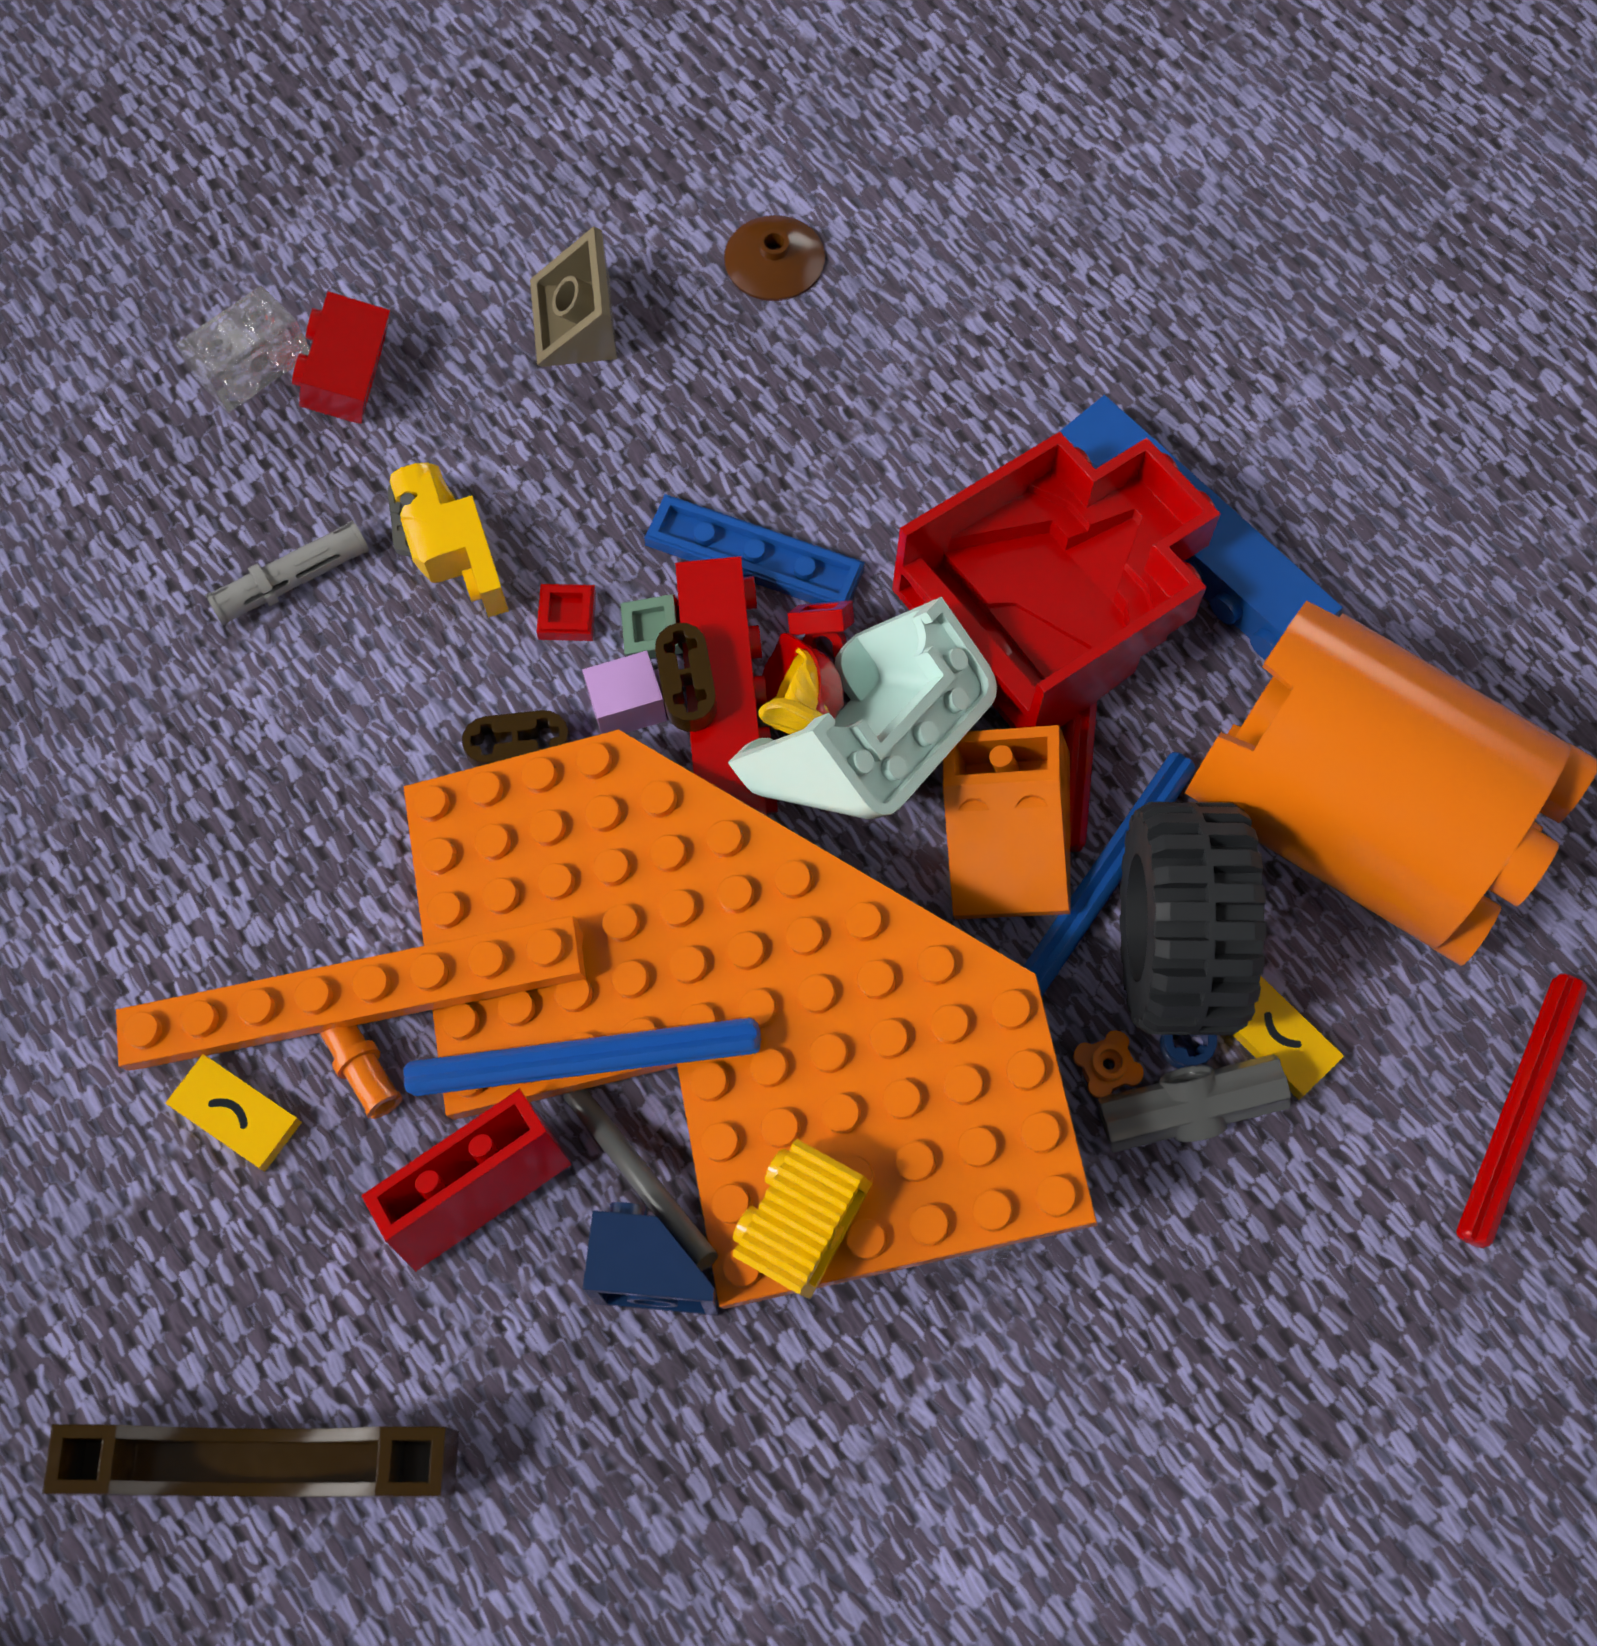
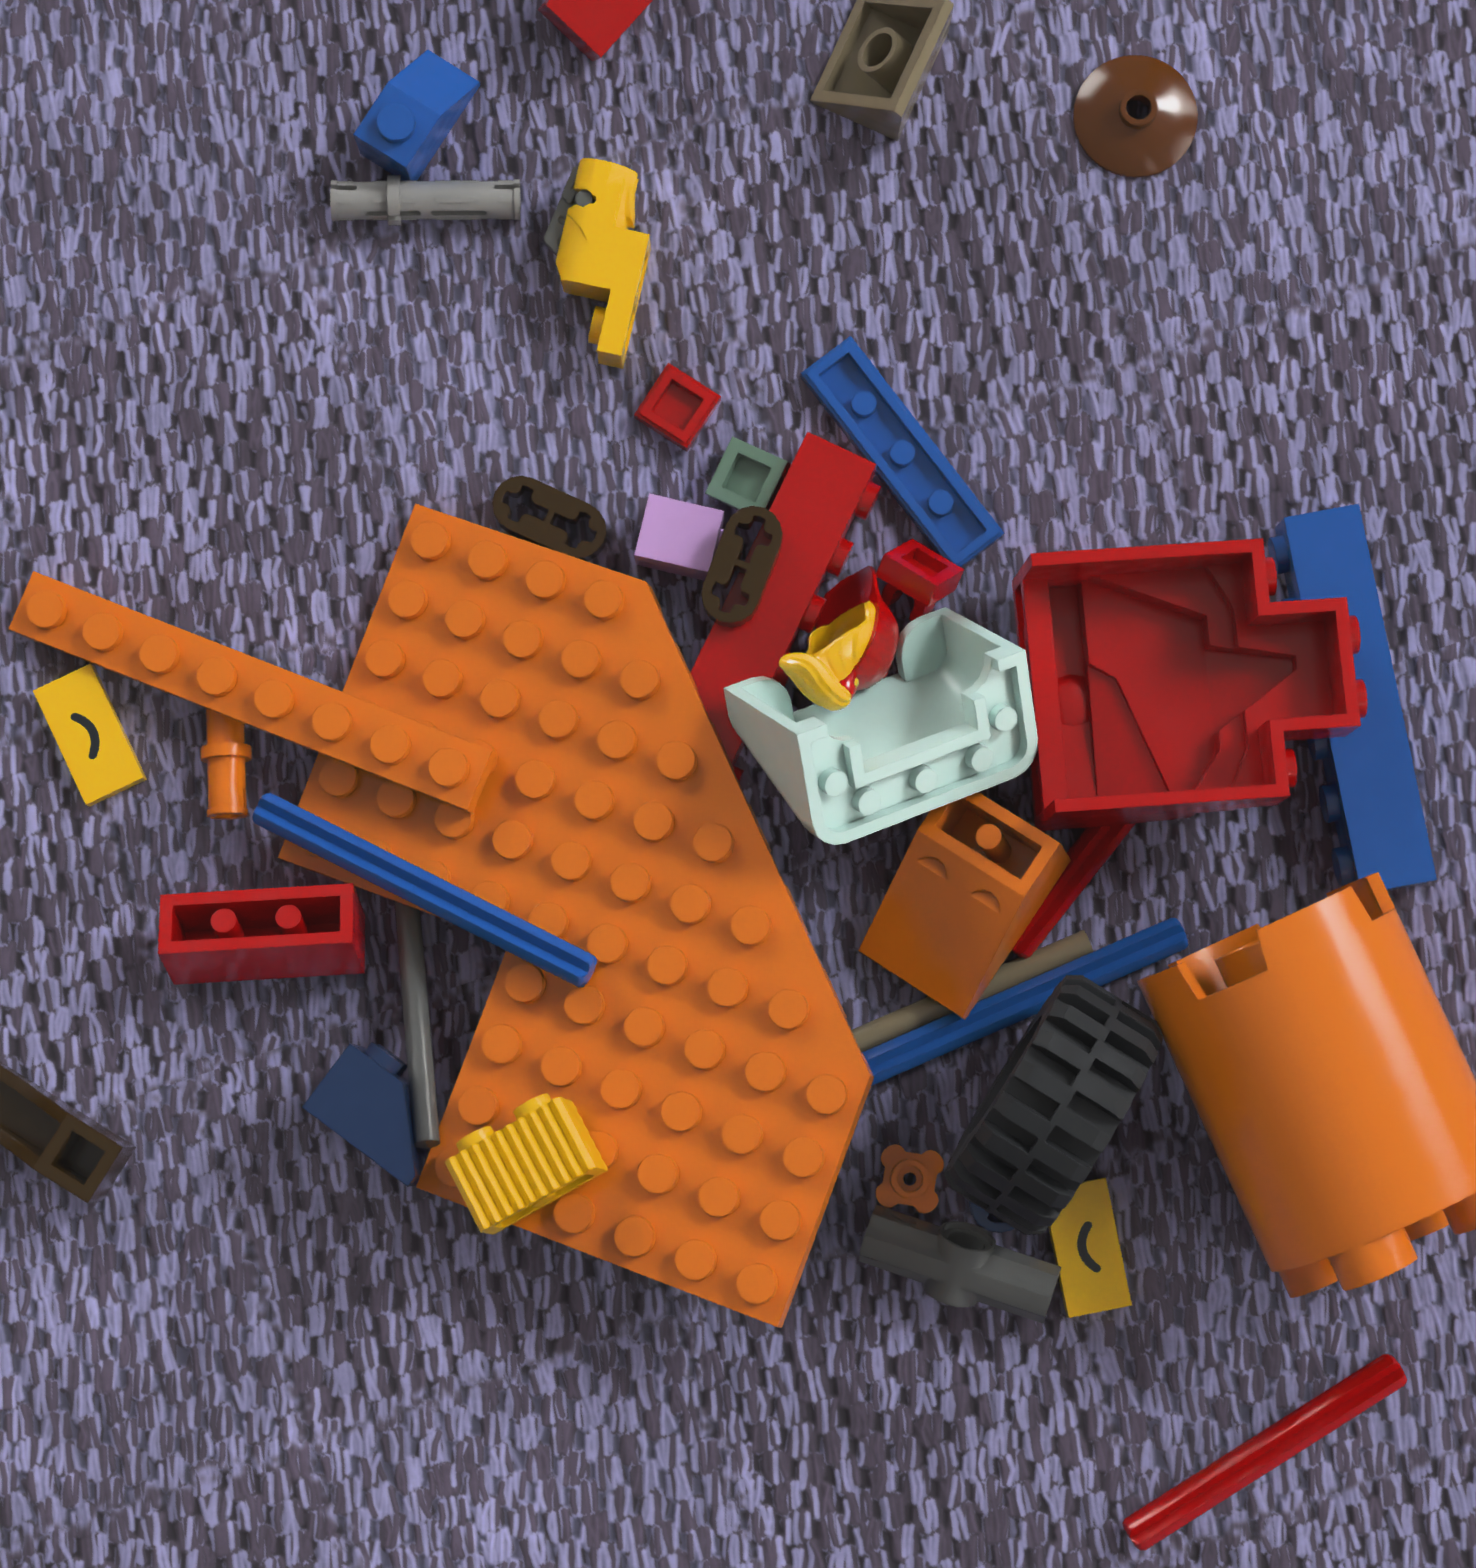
camera: 30 degrees right, 15 degrees up
(243, 523) = (414, 115): none -> blue slope
(1079, 866) = (1007, 976): none -> dark tan bar

